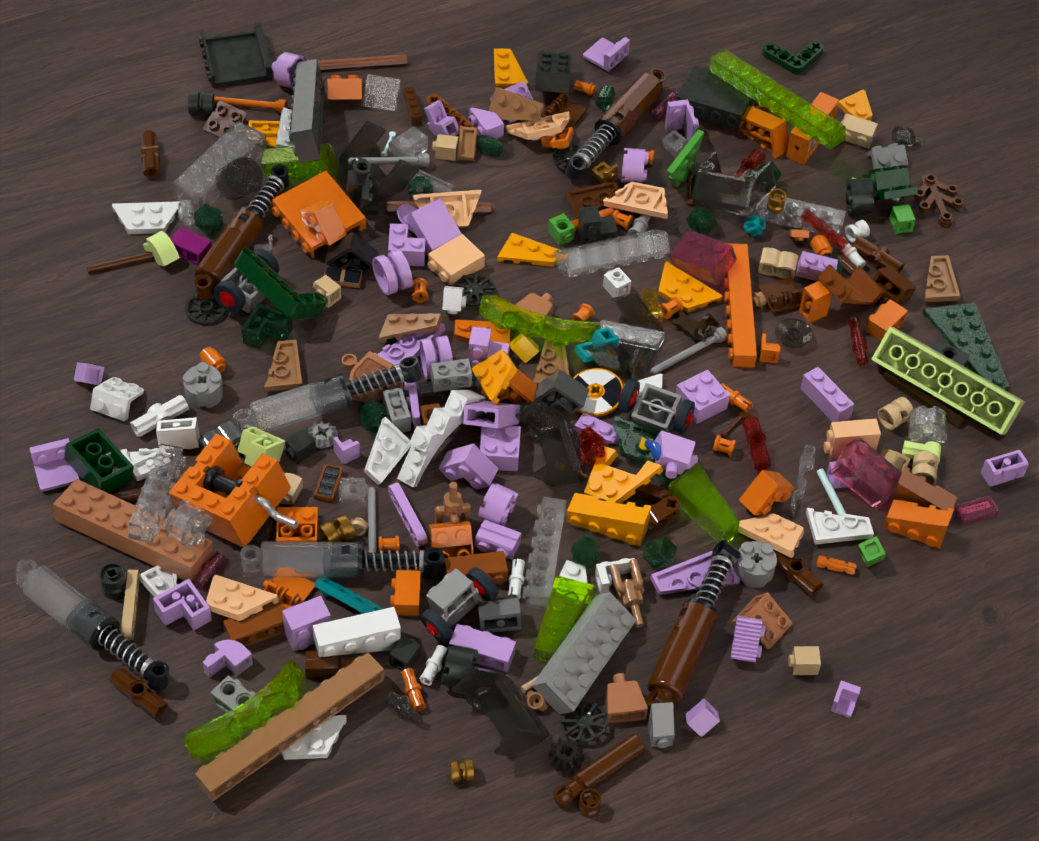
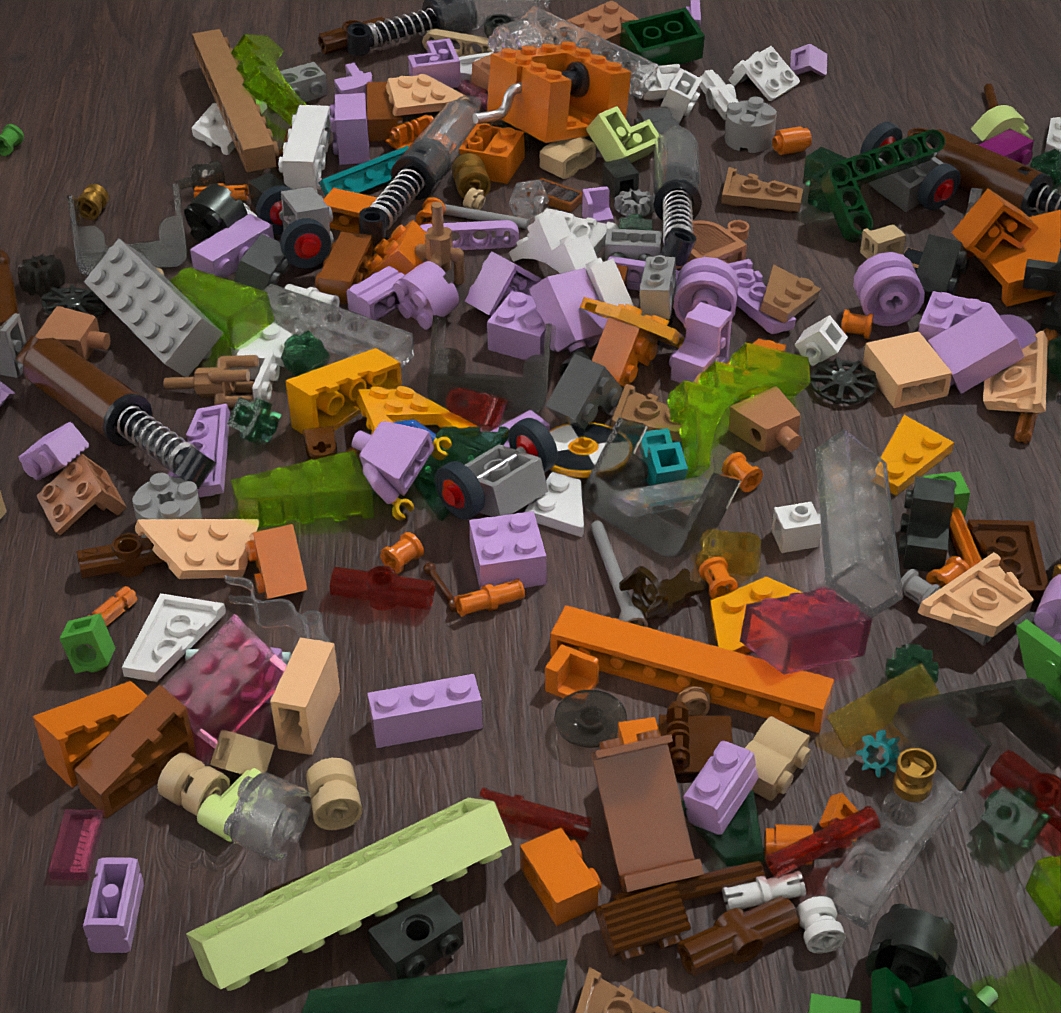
camera: 115 degrees right, 10 degrees down
(729, 224) = (878, 706): none -> clear yellow tile

